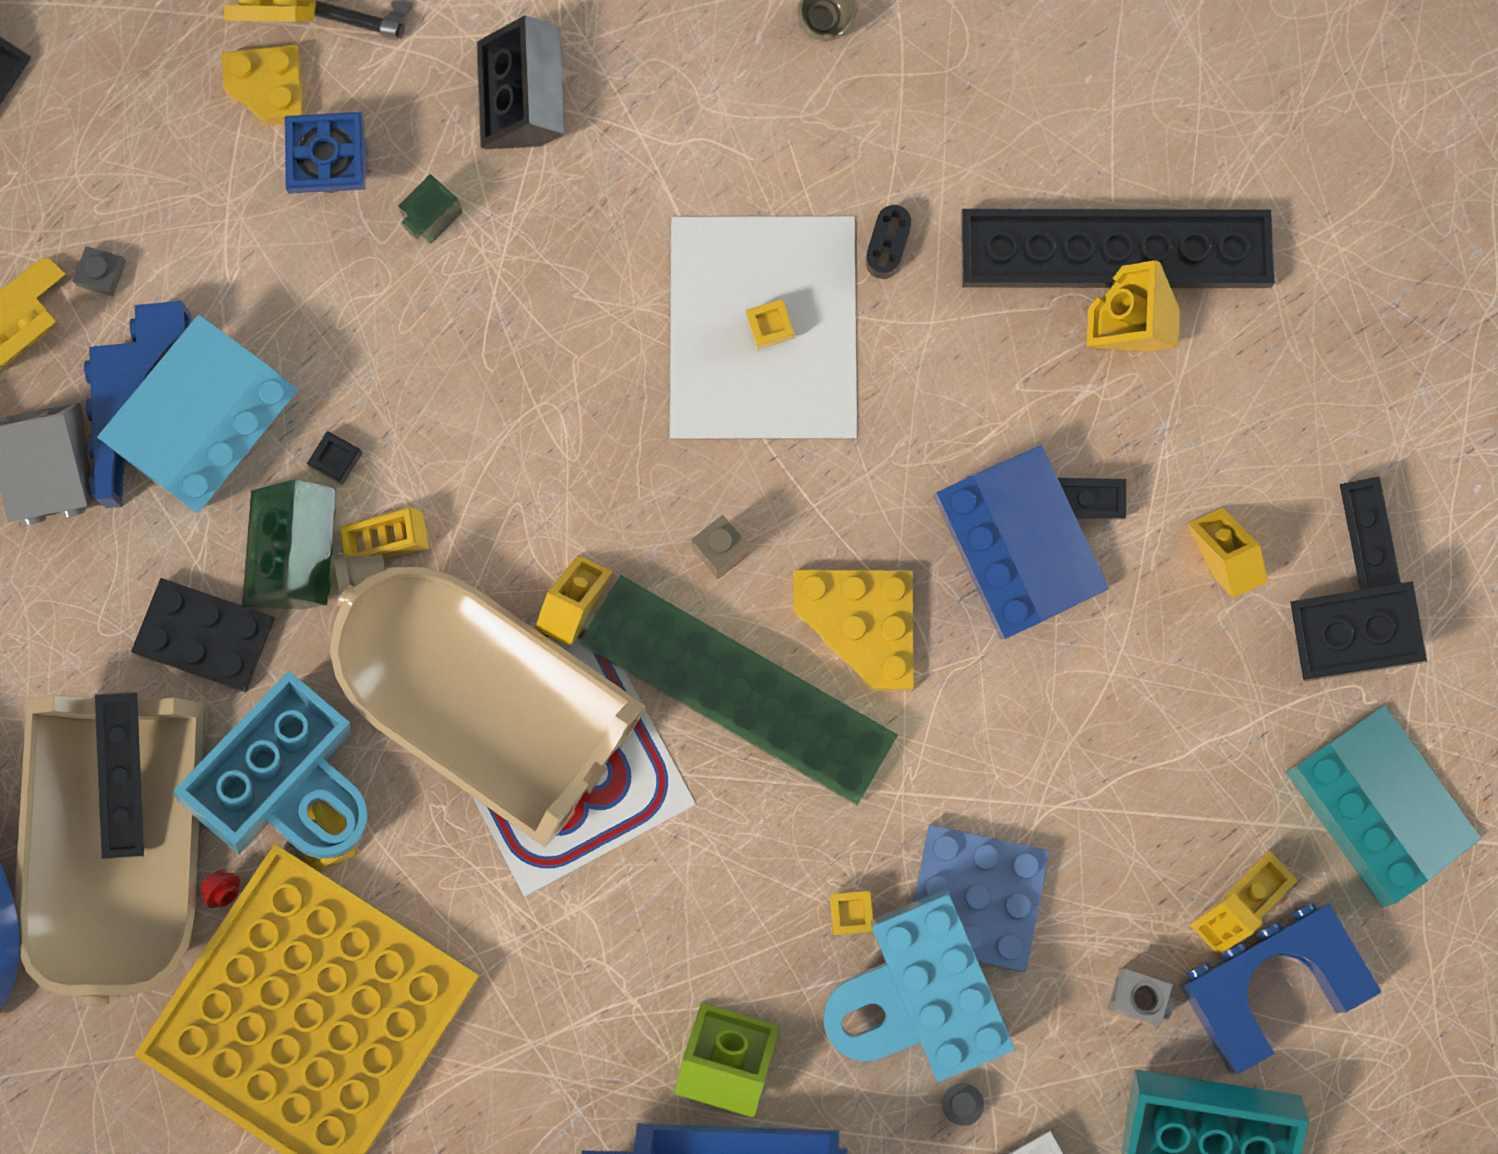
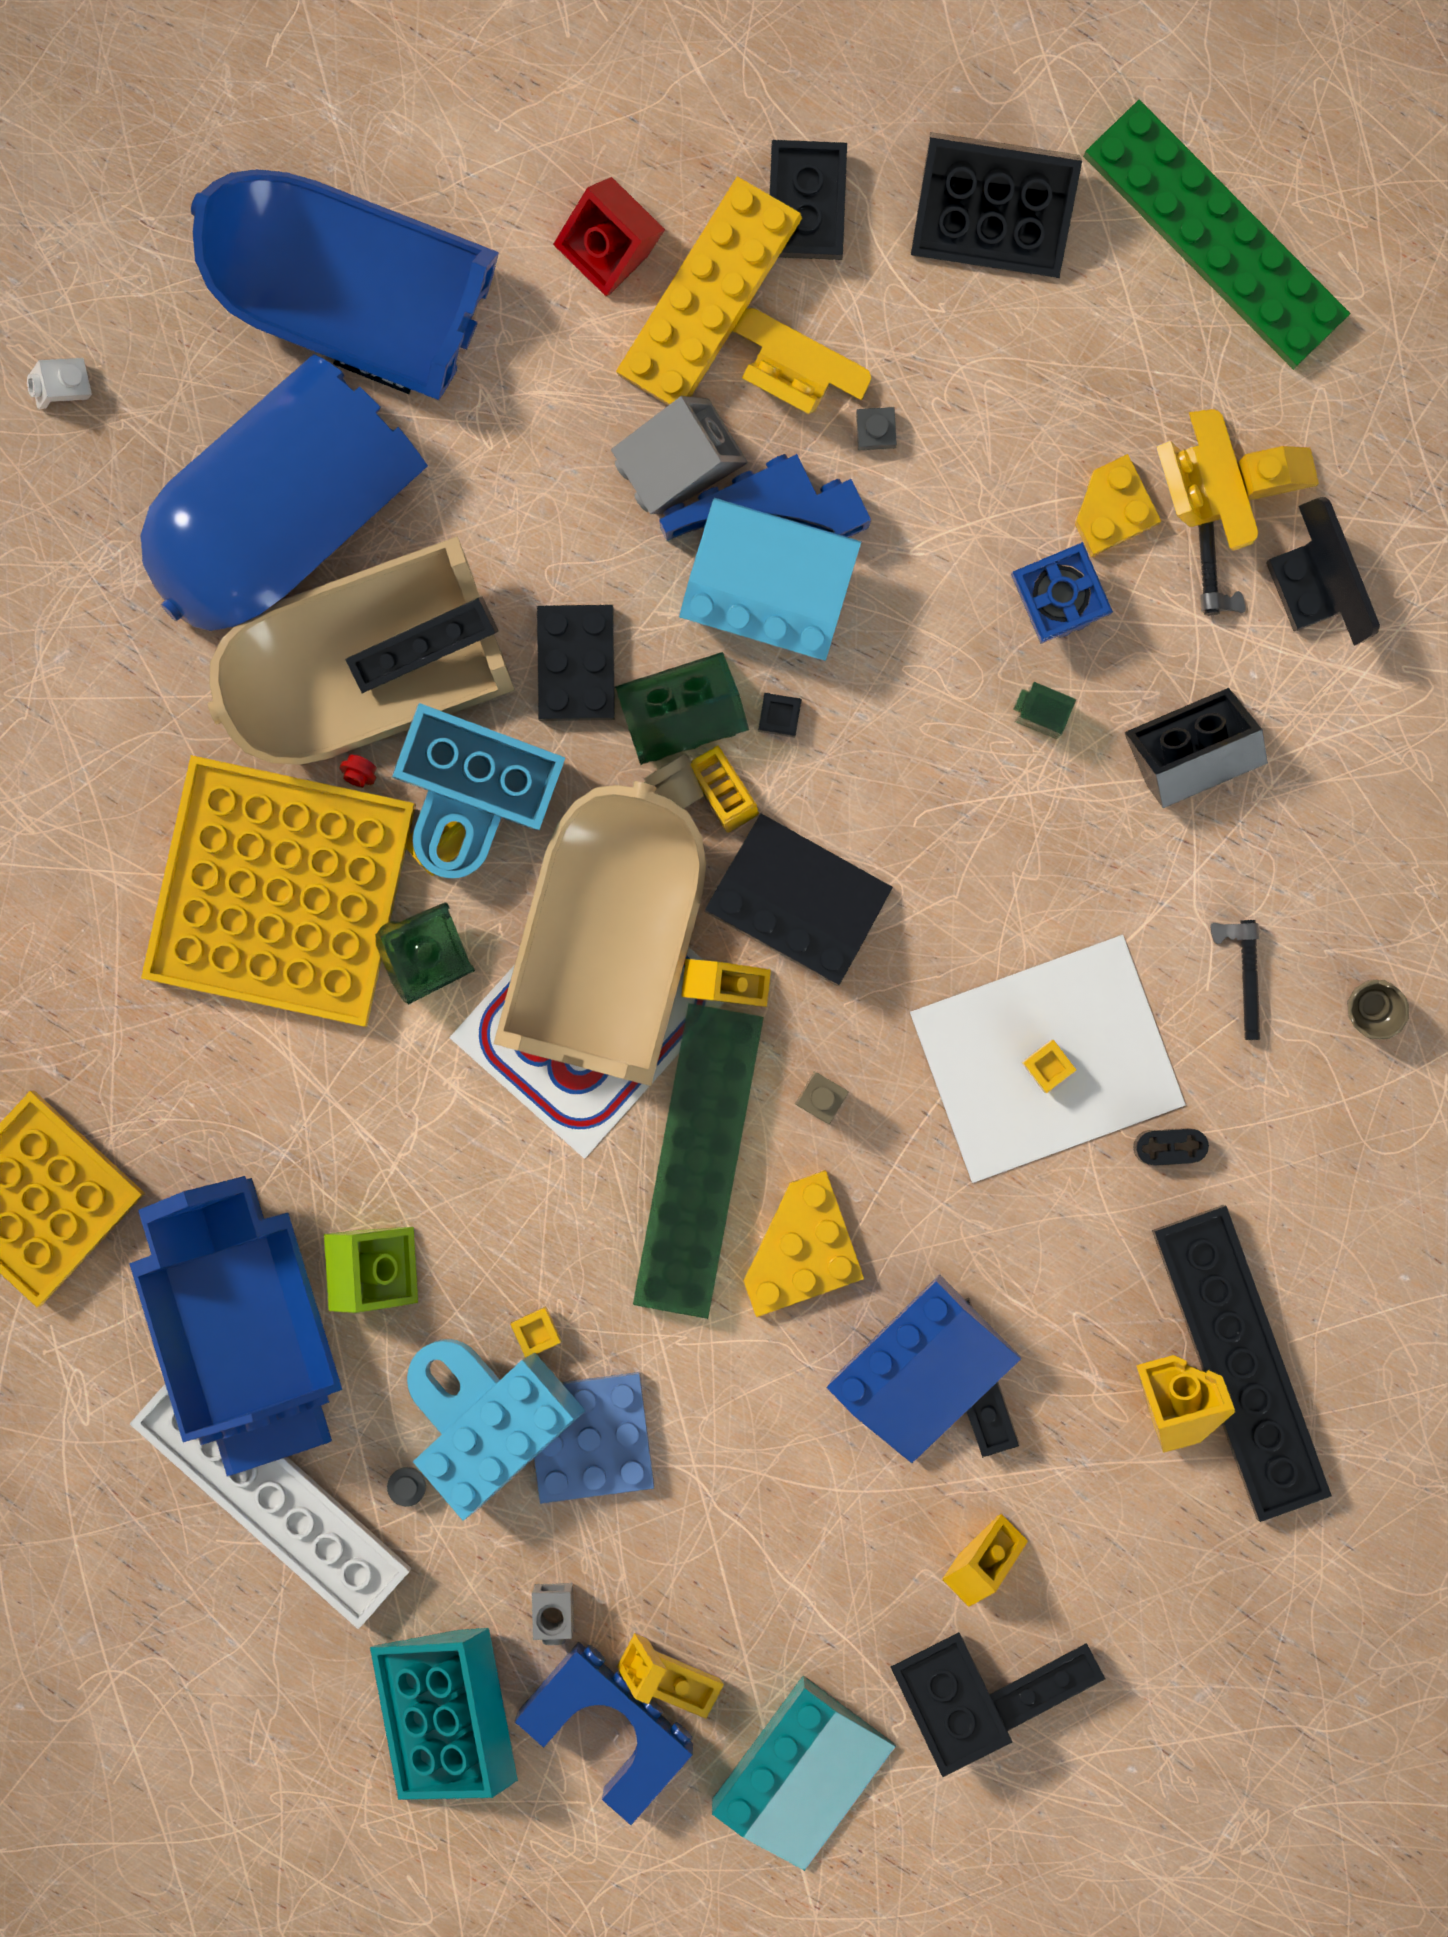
camera: 70 degrees right, 10 degrees up
(427, 888) = (422, 953): none -> clear green slope
(521, 503) = (798, 899): none -> black slope
(712, 103) = (1247, 932): none -> black piece

